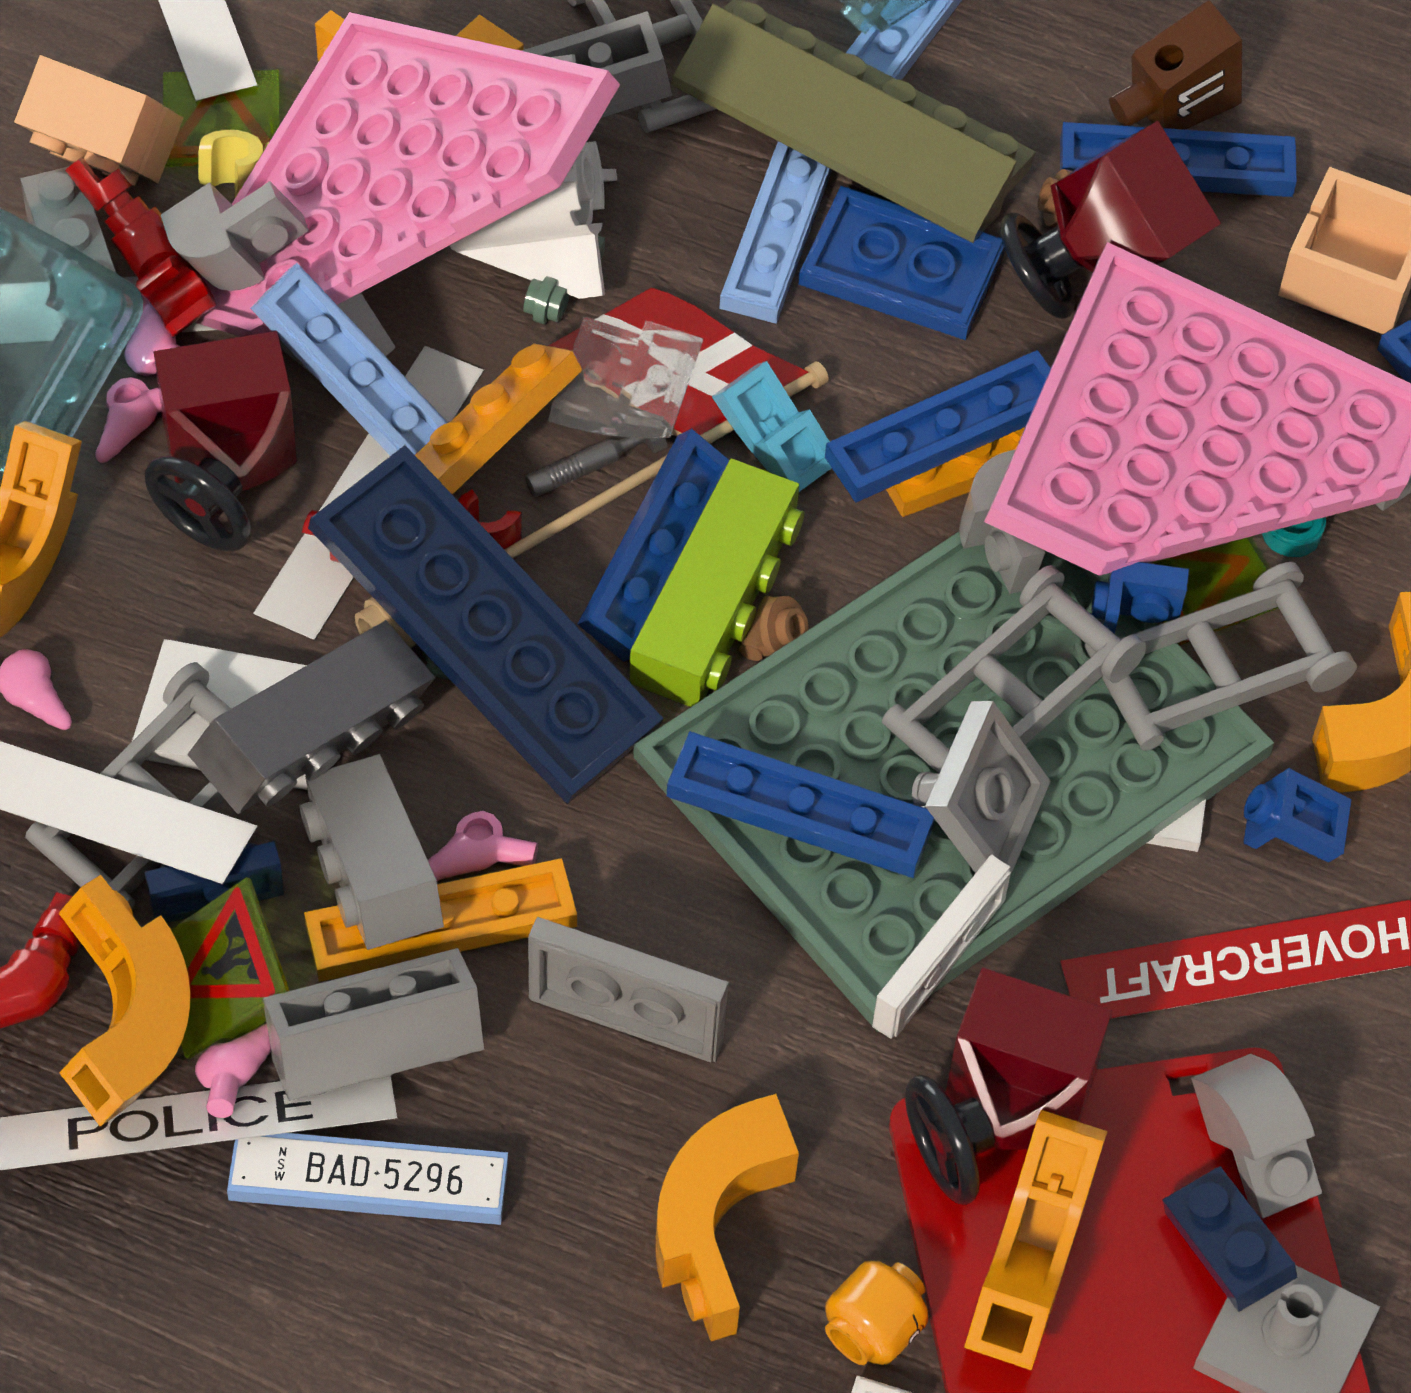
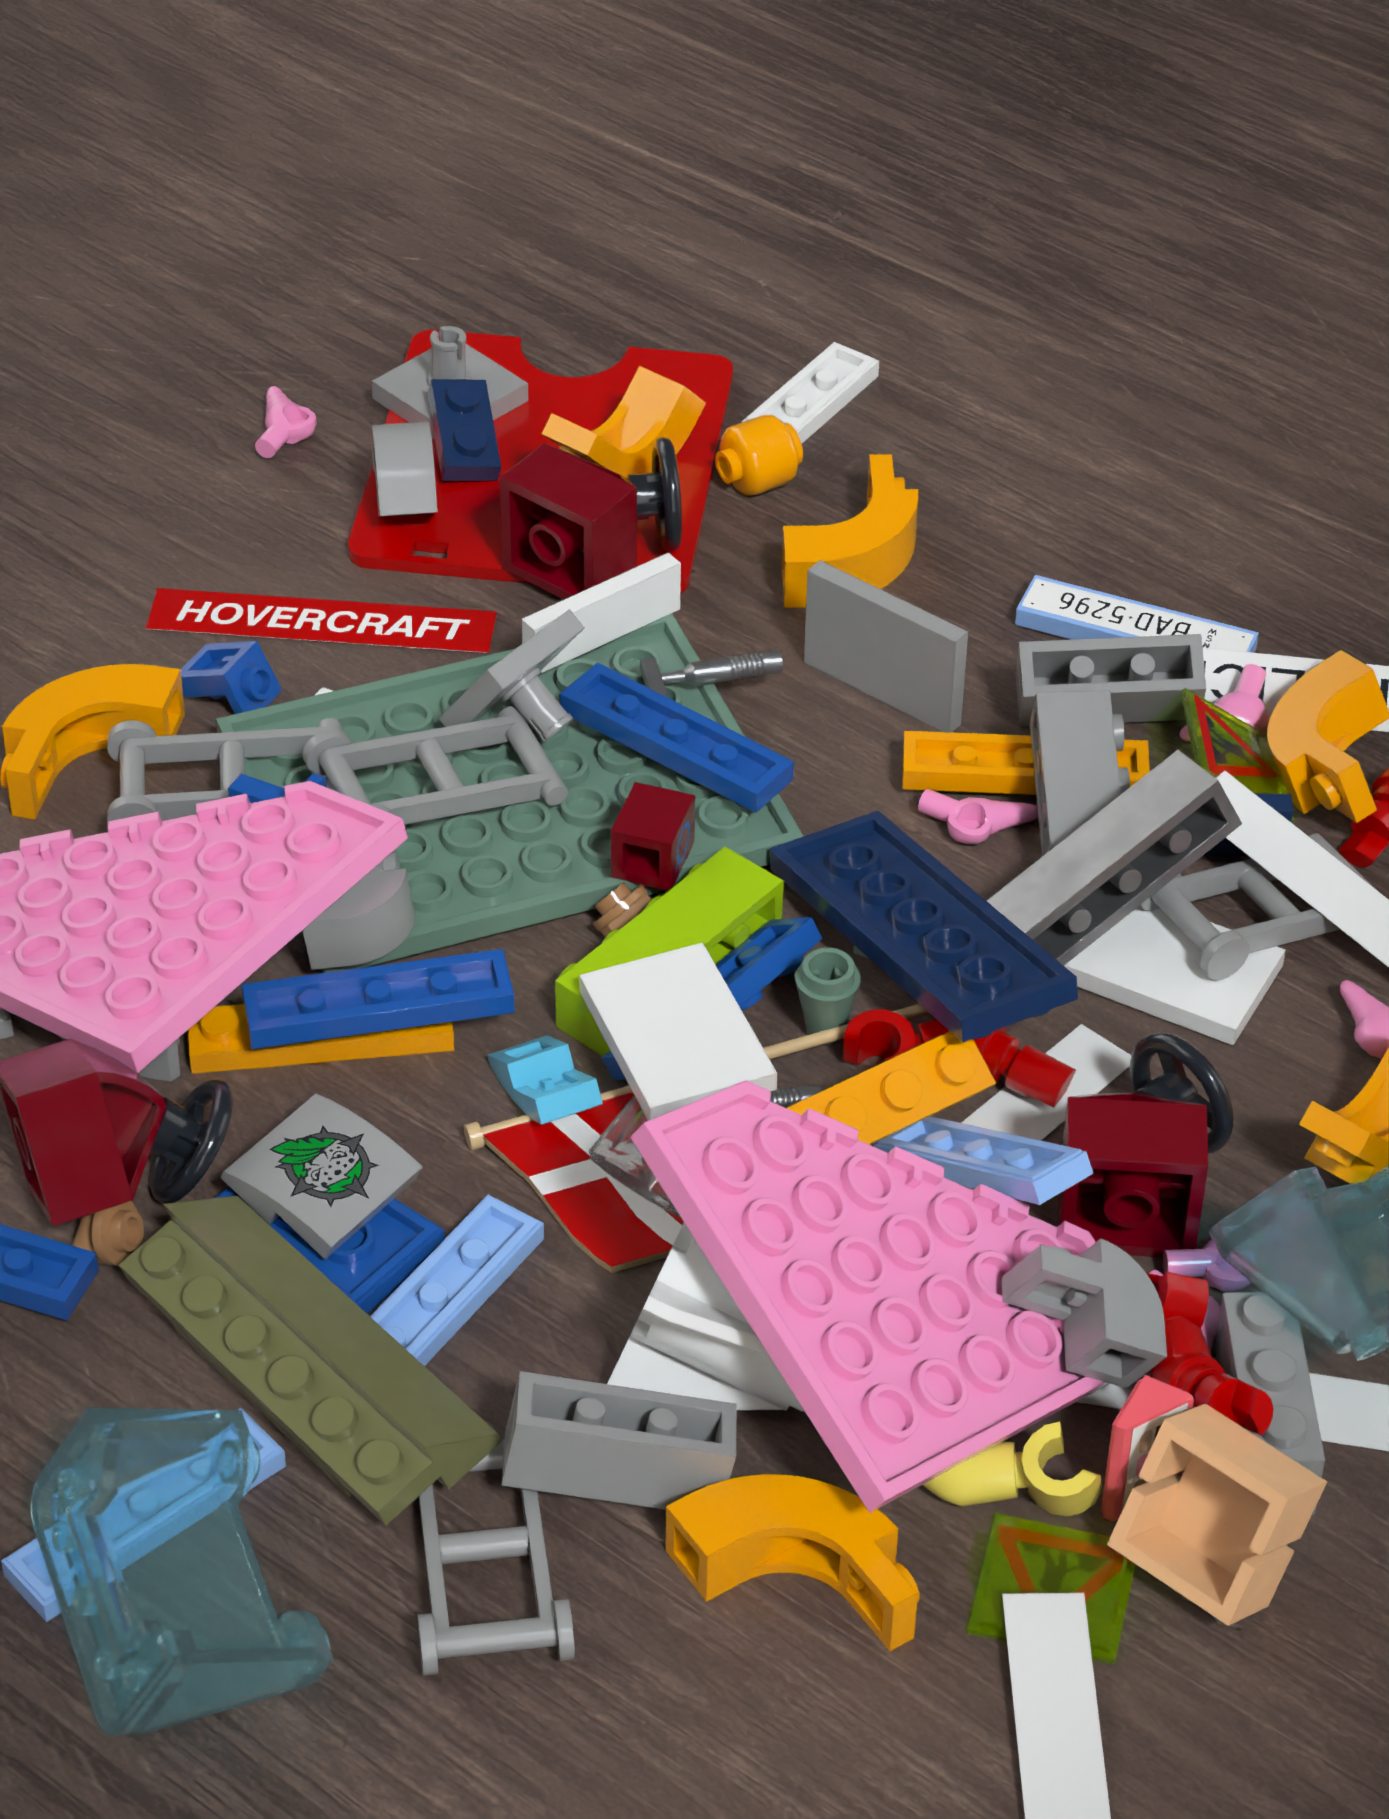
camera: 160 degrees left, 15 degrees down
(165, 161) = (1133, 1437): none -> coral slope
(550, 545) = (827, 989): none -> sand green cone
(665, 435) = (675, 1029): none -> white tile
(772, 661) = (652, 836): none -> dark red brick
(804, 921) = (712, 670): none -> flat silver piece
(916, 265) = (322, 1173): none -> light grey slope

